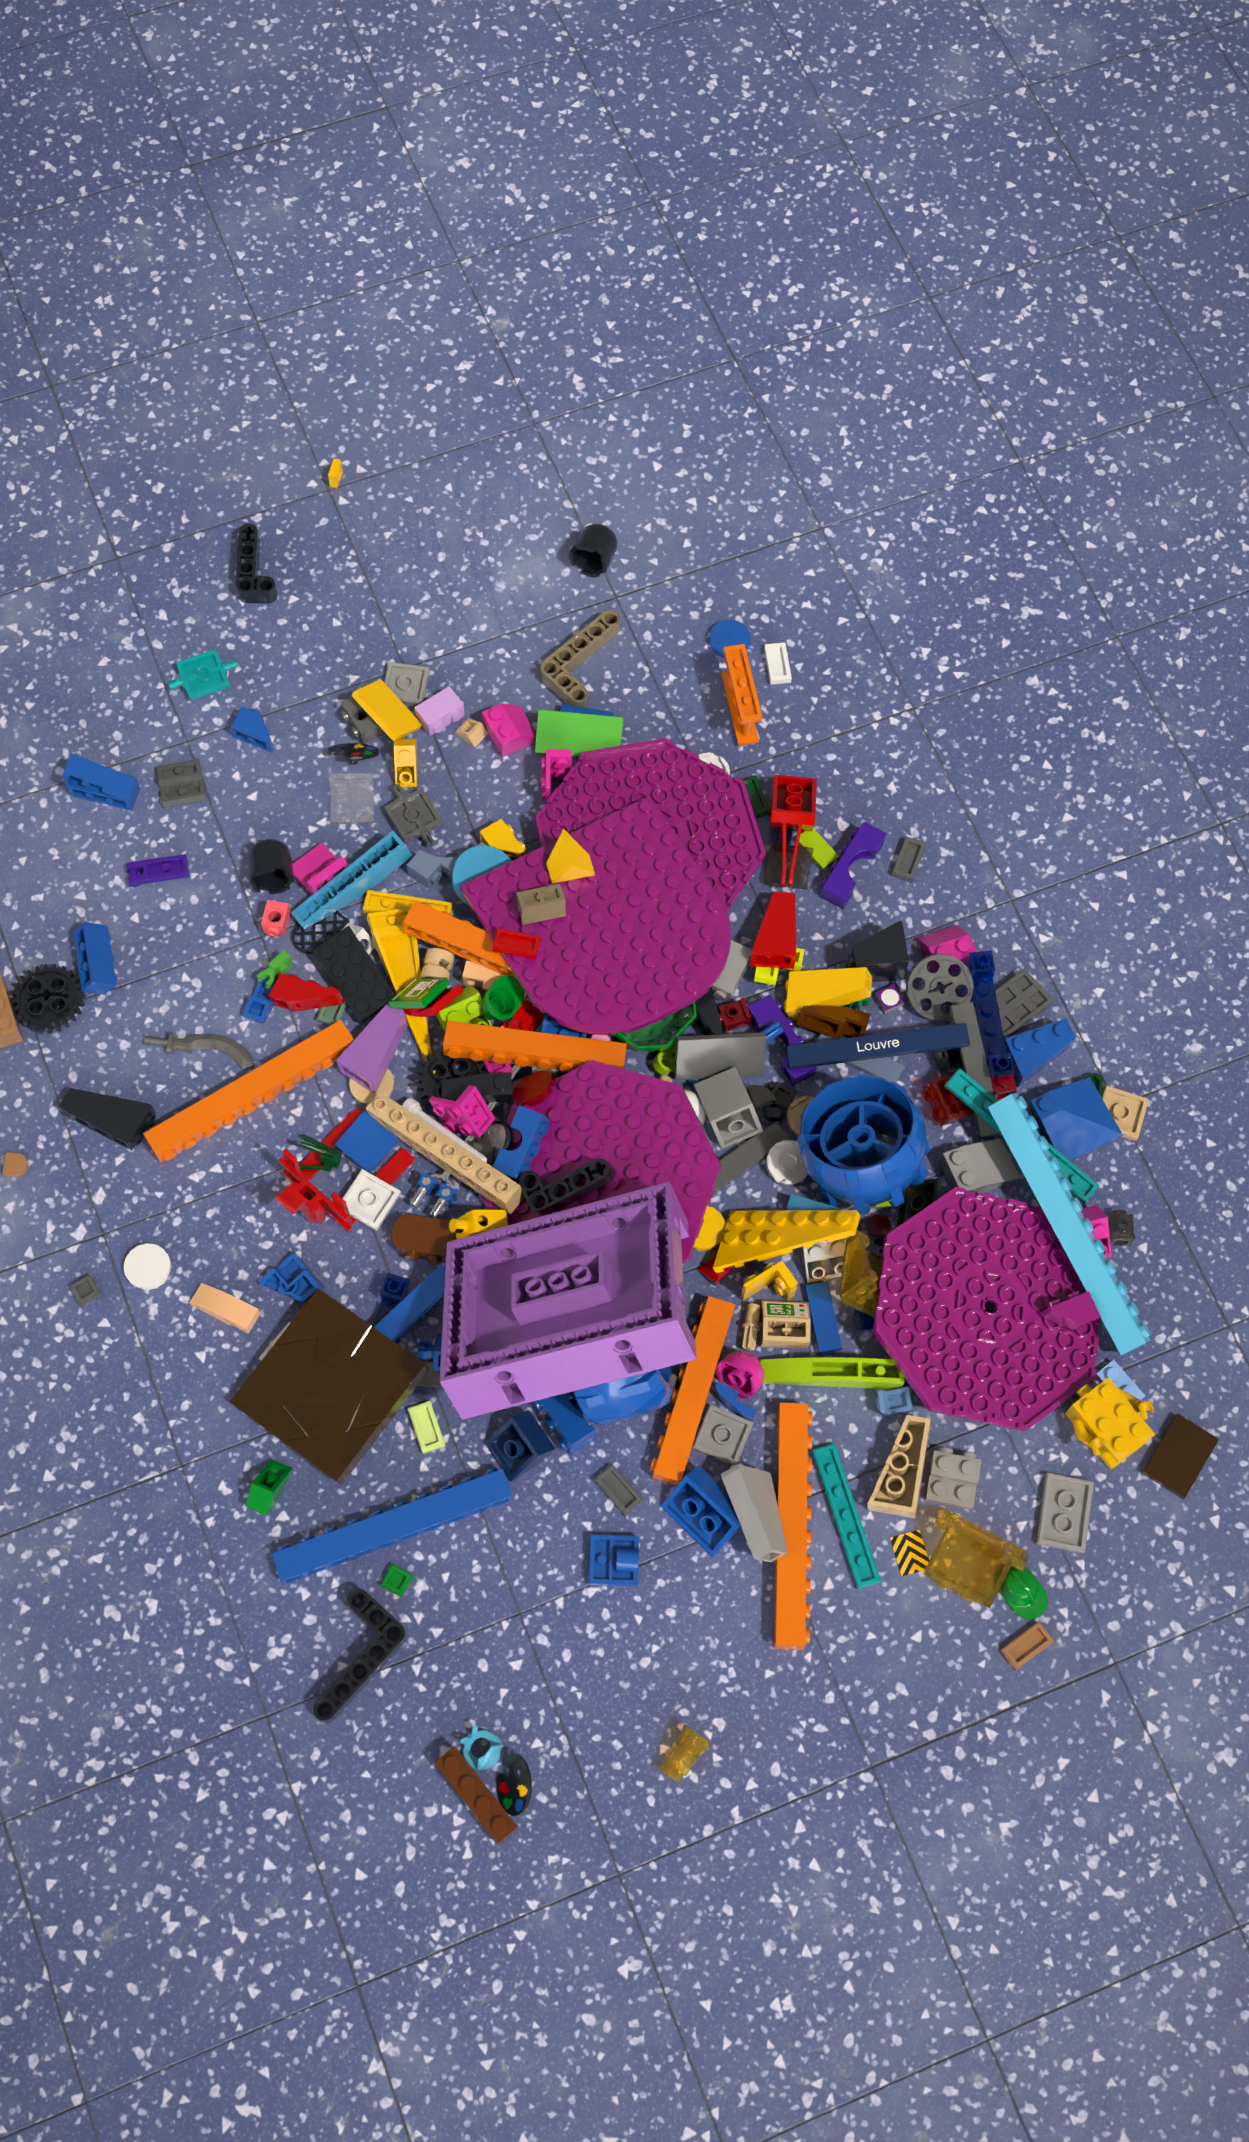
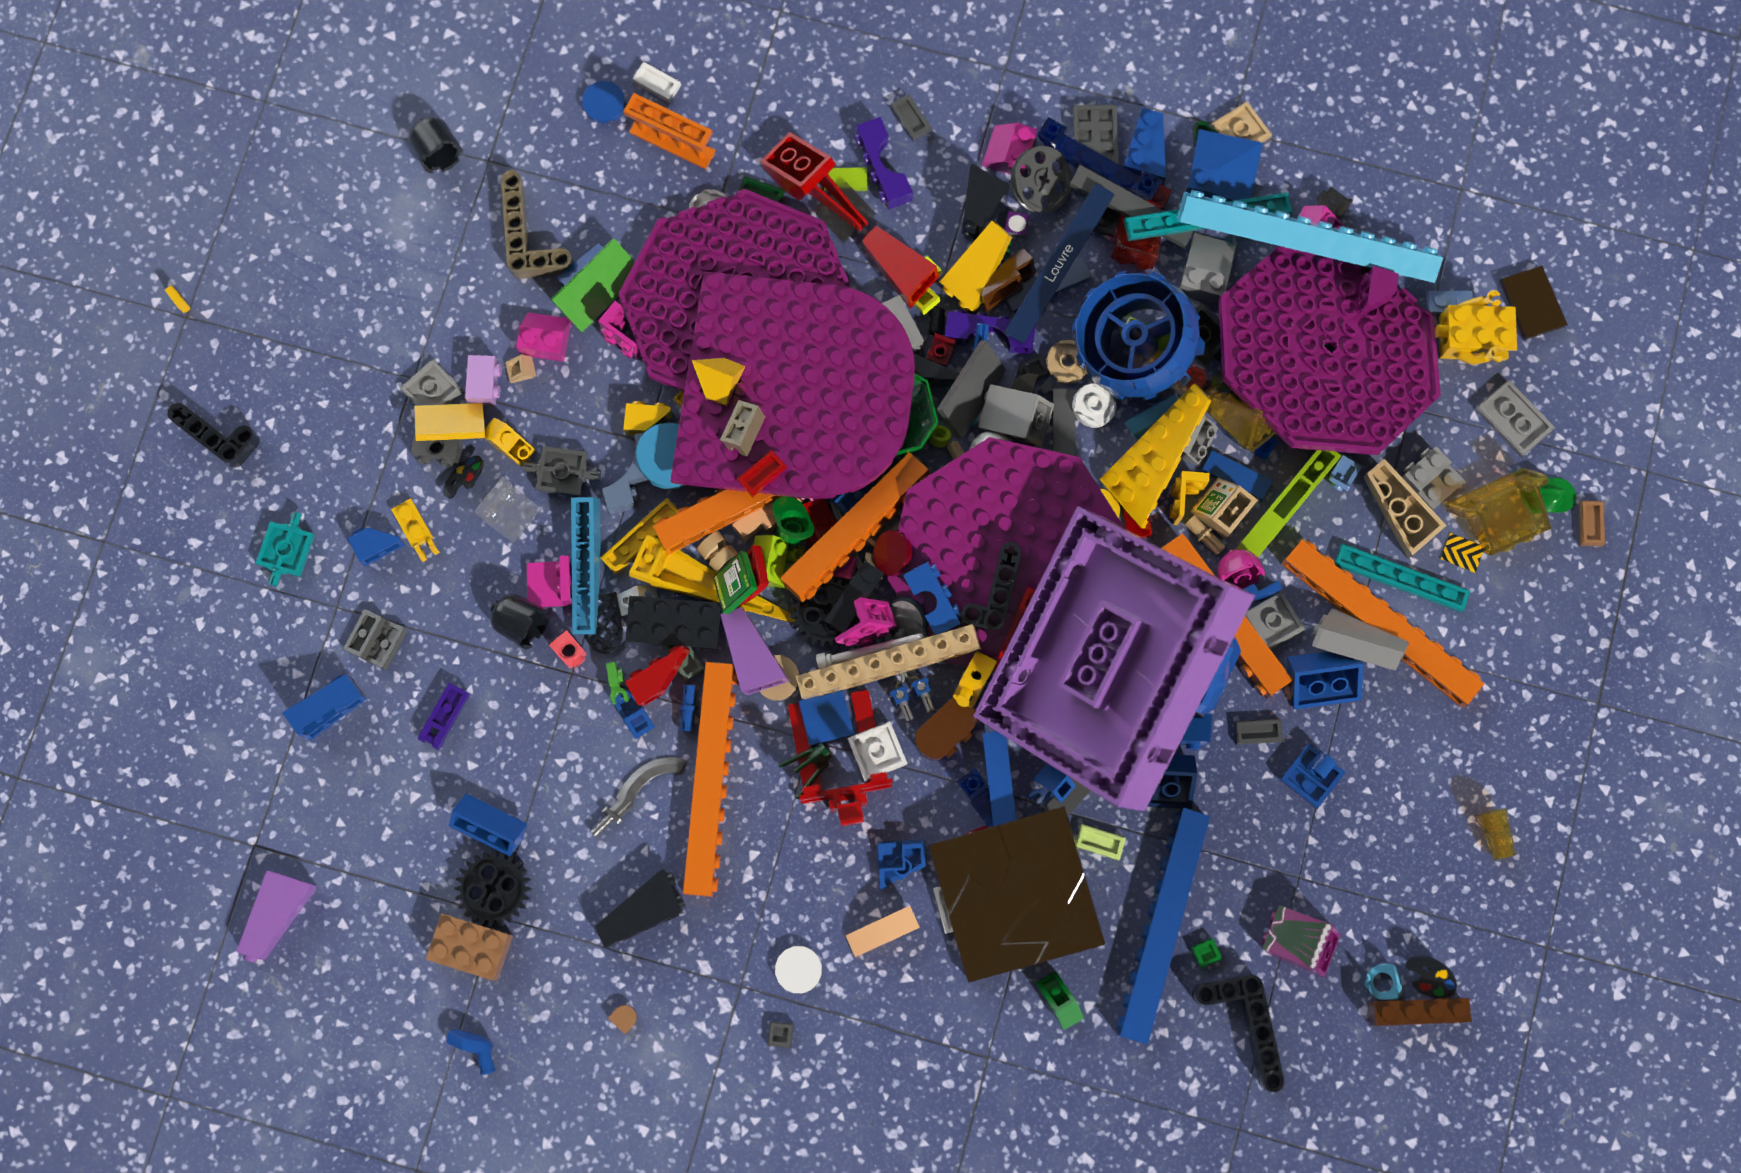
camera: 50 degrees left, 10 degrees up
(288, 749) = (414, 527): none -> yellow hinge
(296, 1036) = (688, 708): none -> blue pin
(463, 1651) = (1301, 940): none -> slope
(759, 994) = (937, 315): none -> black piece

